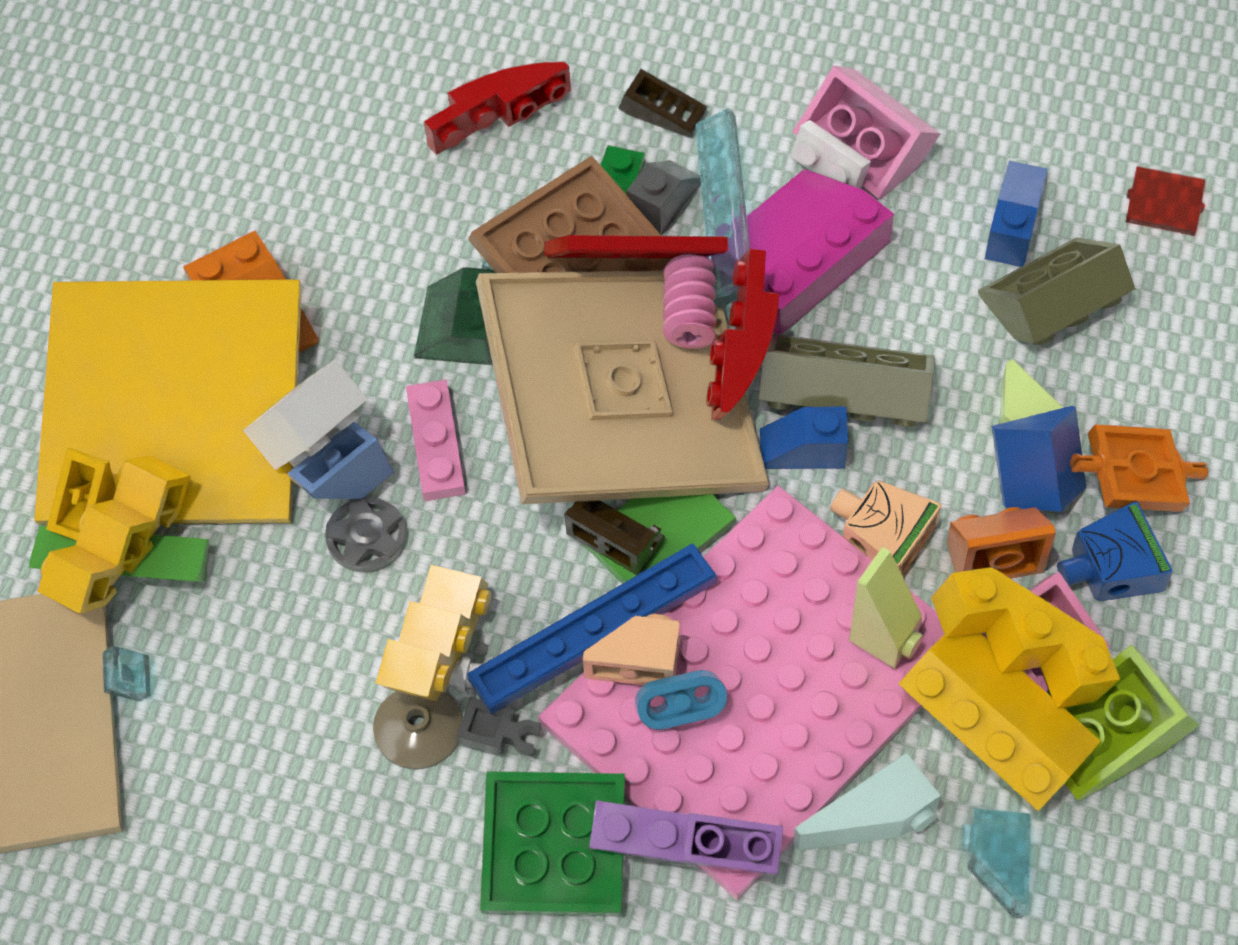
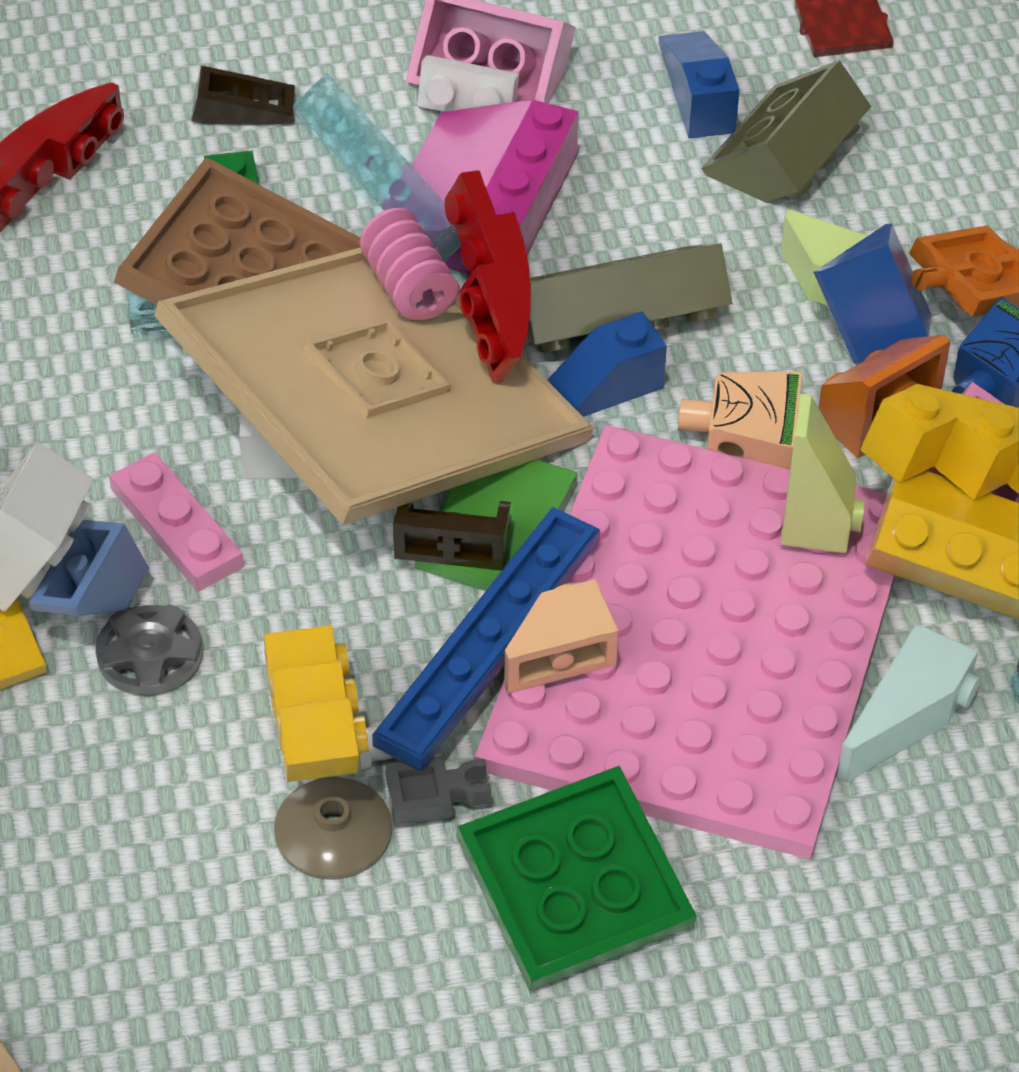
camera: 30 degrees left, 10 degrees down
(453, 321) = (136, 382): clear green slope -> none
(634, 246) = (312, 224): red tile -> none
(662, 191) = (299, 177): dark grey slope -> none
(680, 702) = (634, 668): dark azure plate -> none
(686, 838) = (732, 803): medium lavender slope -> none

